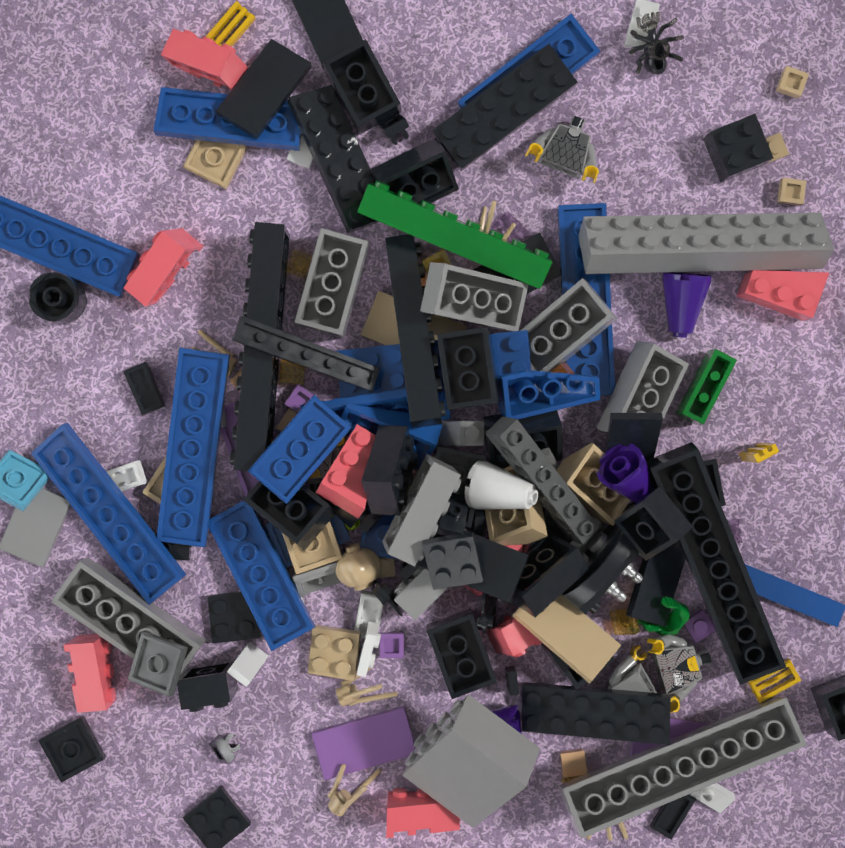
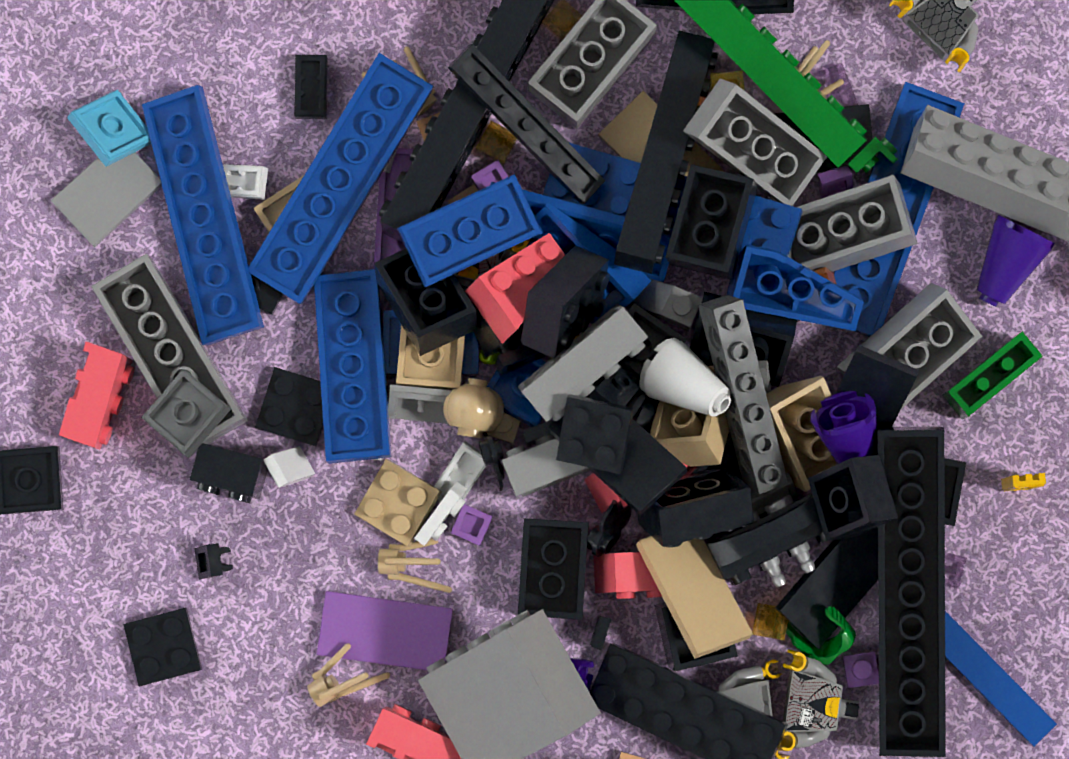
camera: 30 degrees right, 5 degrees down
(540, 298) = (835, 181): none -> medium lavender plate
(556, 271) = (866, 158): none -> green bracket

